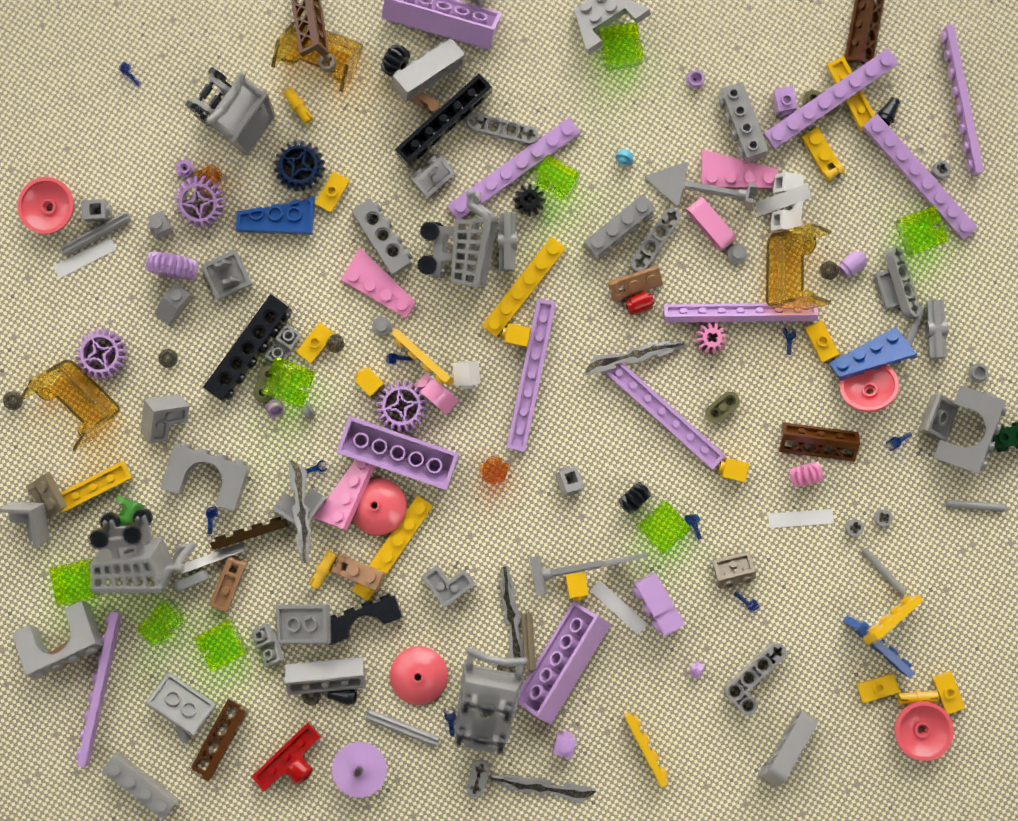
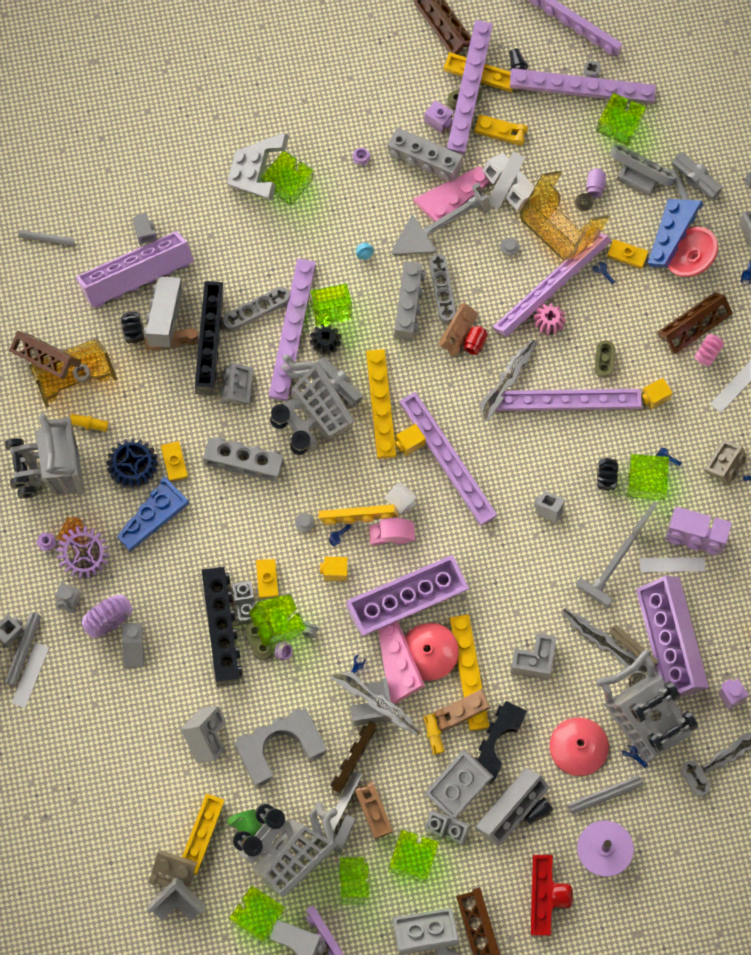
camera: 45 degrees left, 15 degrees down
(7, 400) = (76, 822): clear smoke plate -> none
(78, 394) = (126, 778): clear yellow windscreen -> none
(97, 347) = (110, 738): lavender gear -> none
(162, 358) = (166, 683): clear smoke plate -> none
(210, 513) = (309, 772): clear blue hand -> none
(226, 275) = (153, 589): light grey plate -> none
(311, 701) = (520, 838): clear smoke plate -> none
(335, 343) = (282, 564): clear smoke plate -> none
(375, 283) = (269, 497): bright pink wing -> none
(392, 408) = (365, 554): lavender gear -> none
(494, 470) = (488, 548): clear orange brick -> none
(577, 585) = (628, 574): yellow brick -> none
(711, 224) = (471, 242): bright pink beam -> none

